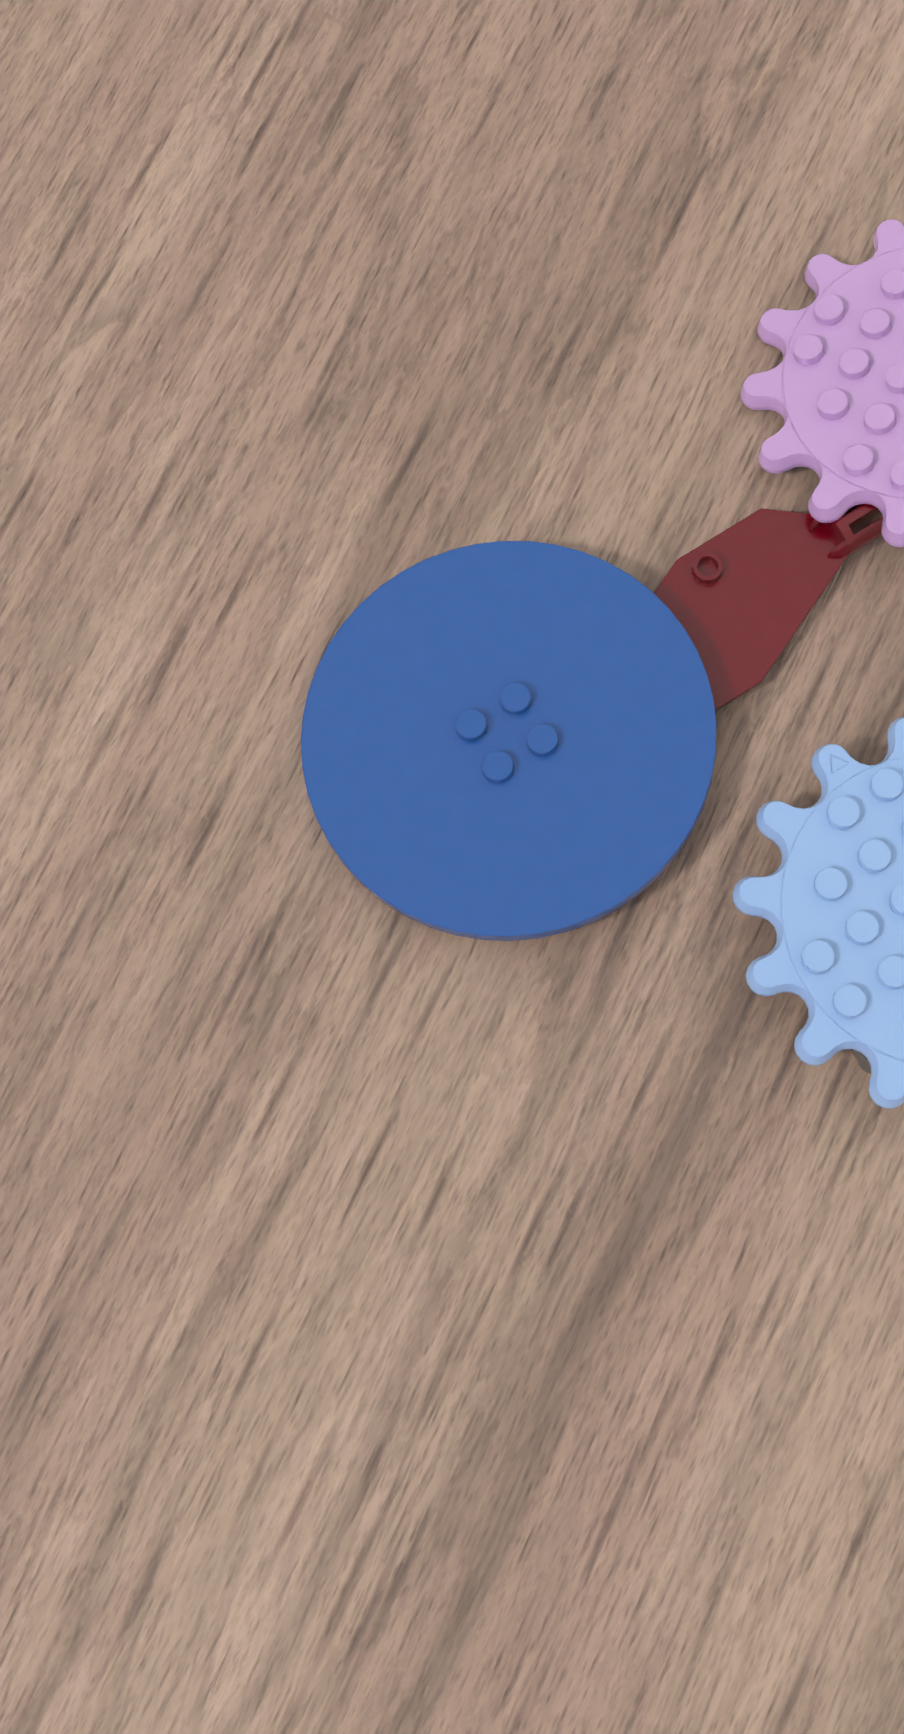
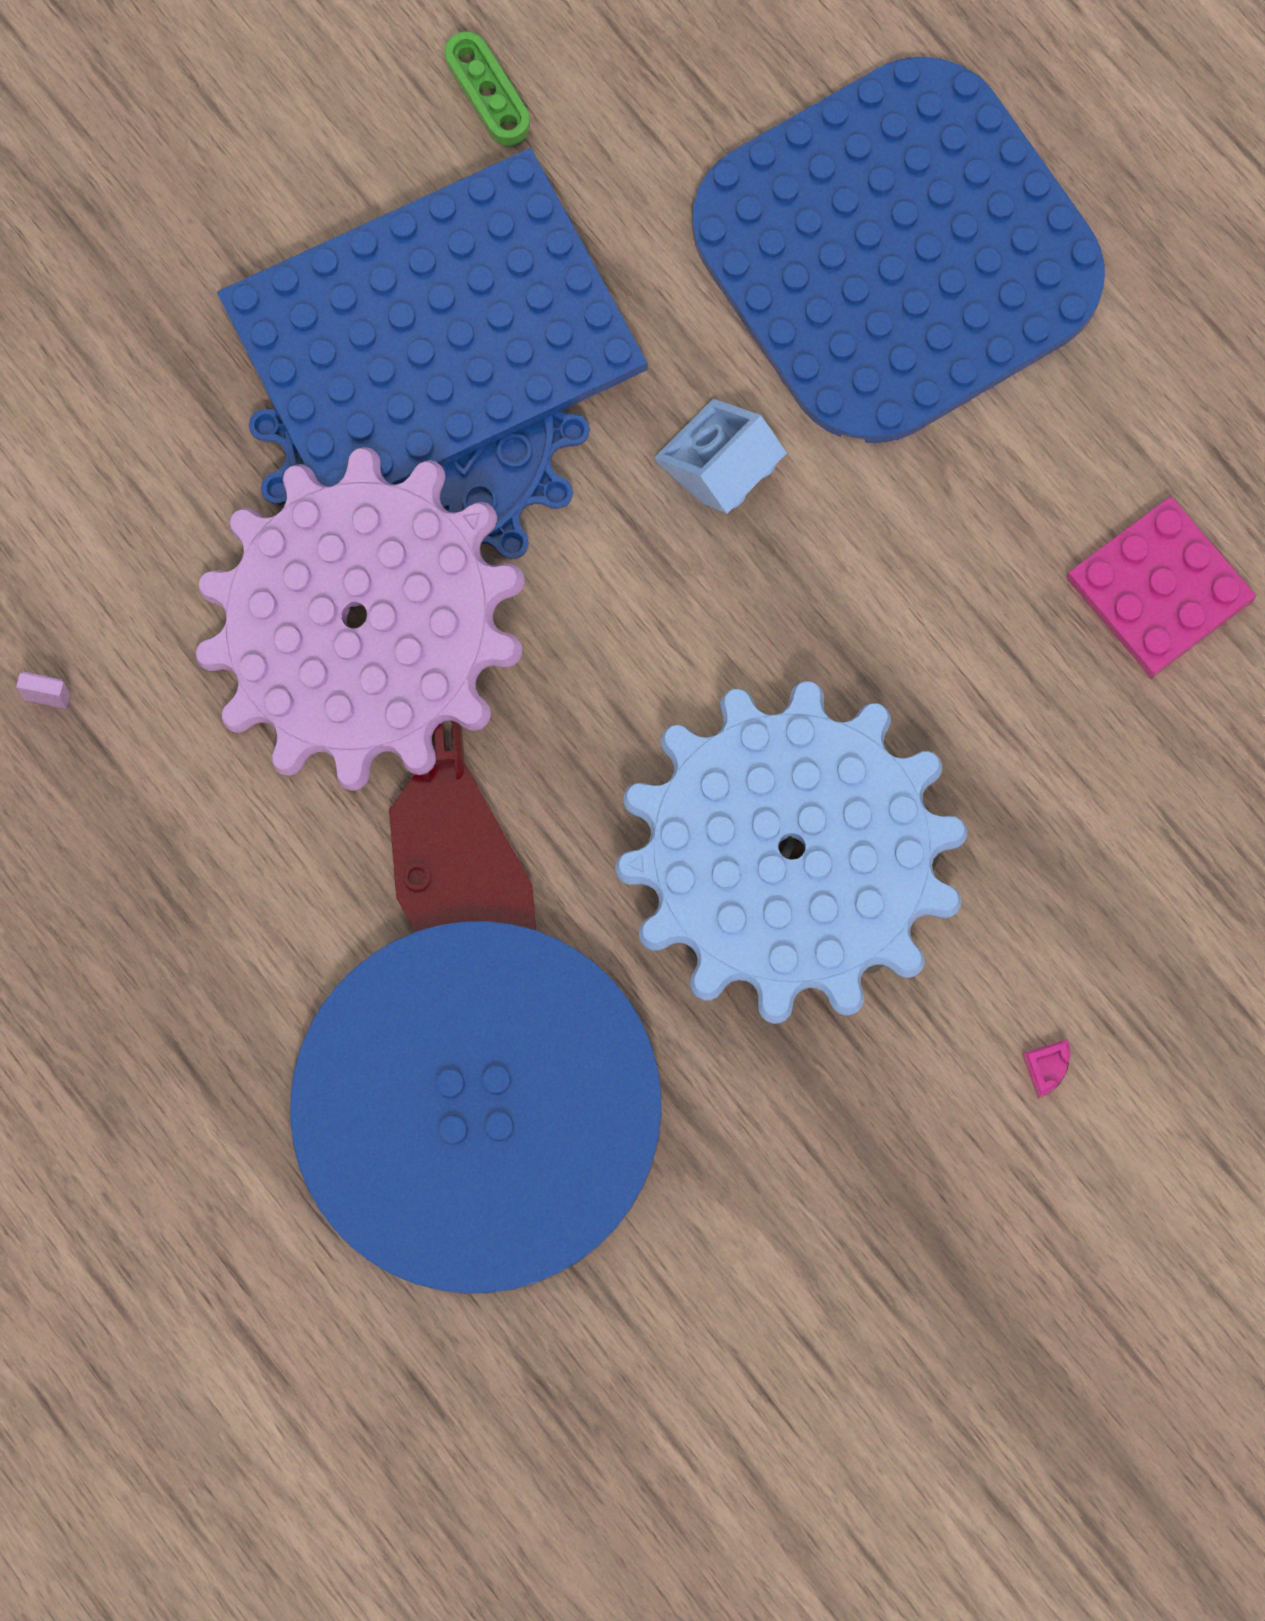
camera: 65 degrees left, 0 degrees up
(698, 140) = (43, 690): none -> lavender tile
(860, 1298) = (1047, 1066): none -> dark pink tile

